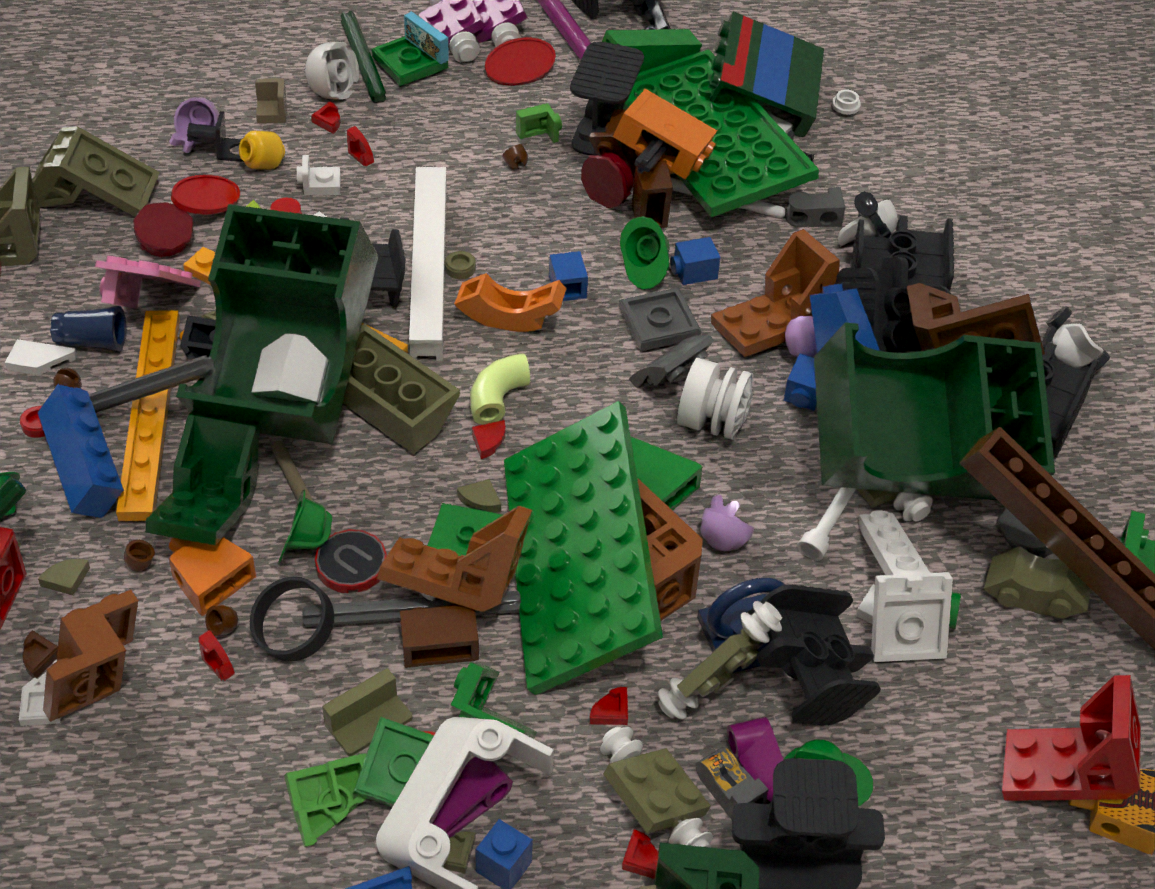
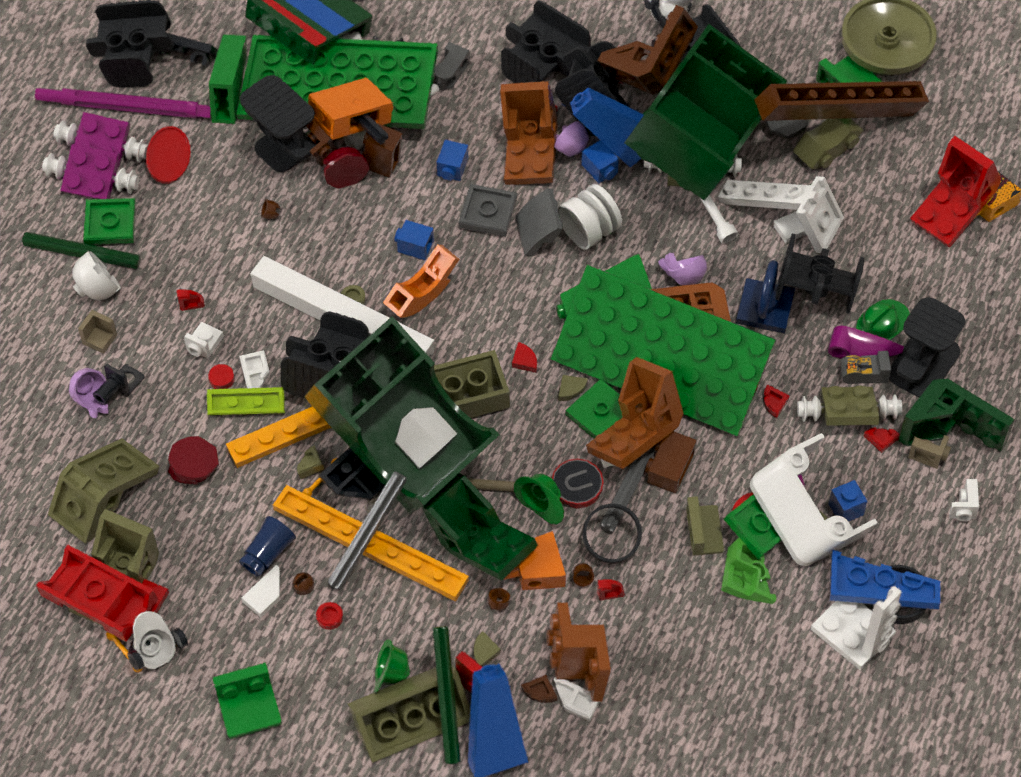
camera: 55 degrees left, 10 degrees up
(80, 451) = (388, 595): blue brick -> none
(124, 279) = (255, 486): bright pink bracket -> none
(205, 194) = (172, 418): red piece -> none
(261, 150) = (150, 361): yellow head -> none
(327, 117) = (135, 305): red tile -> none
(426, 37) = (110, 198): tile -> none
(472, 693) = (735, 458): green bracket -> none
(494, 383) = (484, 330): yellowish green cylinder -> none
(538, 121) = (247, 171): bright green bracket -> none
(644, 252) = (429, 185): green piece -> none
(717, 667) = (799, 324): plate -> none
(879, 218) = (491, 44): cap -> none

